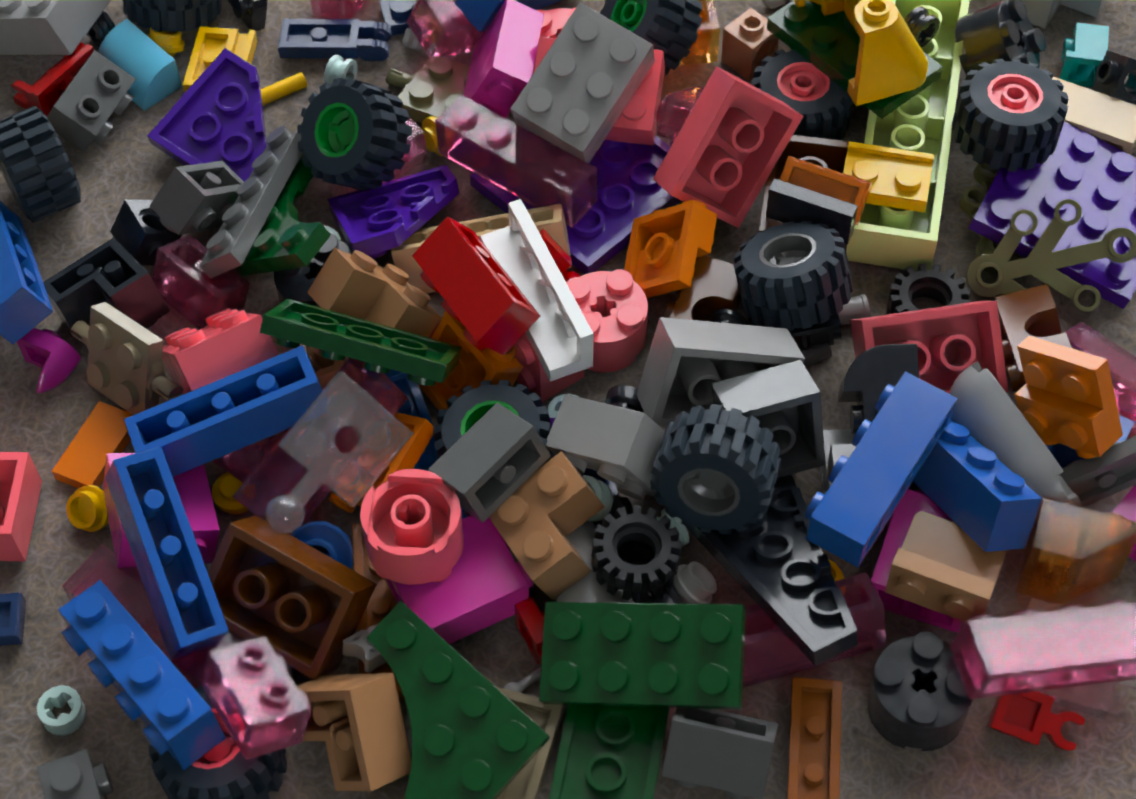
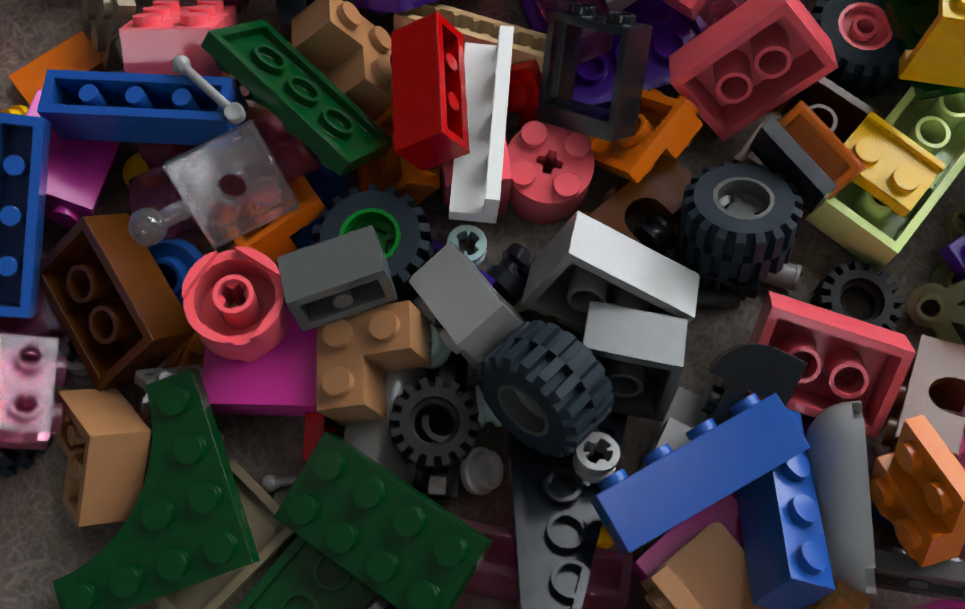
camera: 20 degrees right, 15 degrees up
(324, 368) = (233, 111): none -> light grey hinge
(568, 222) = (560, 67): none -> black window
(792, 520) = (604, 467): none -> light grey bush

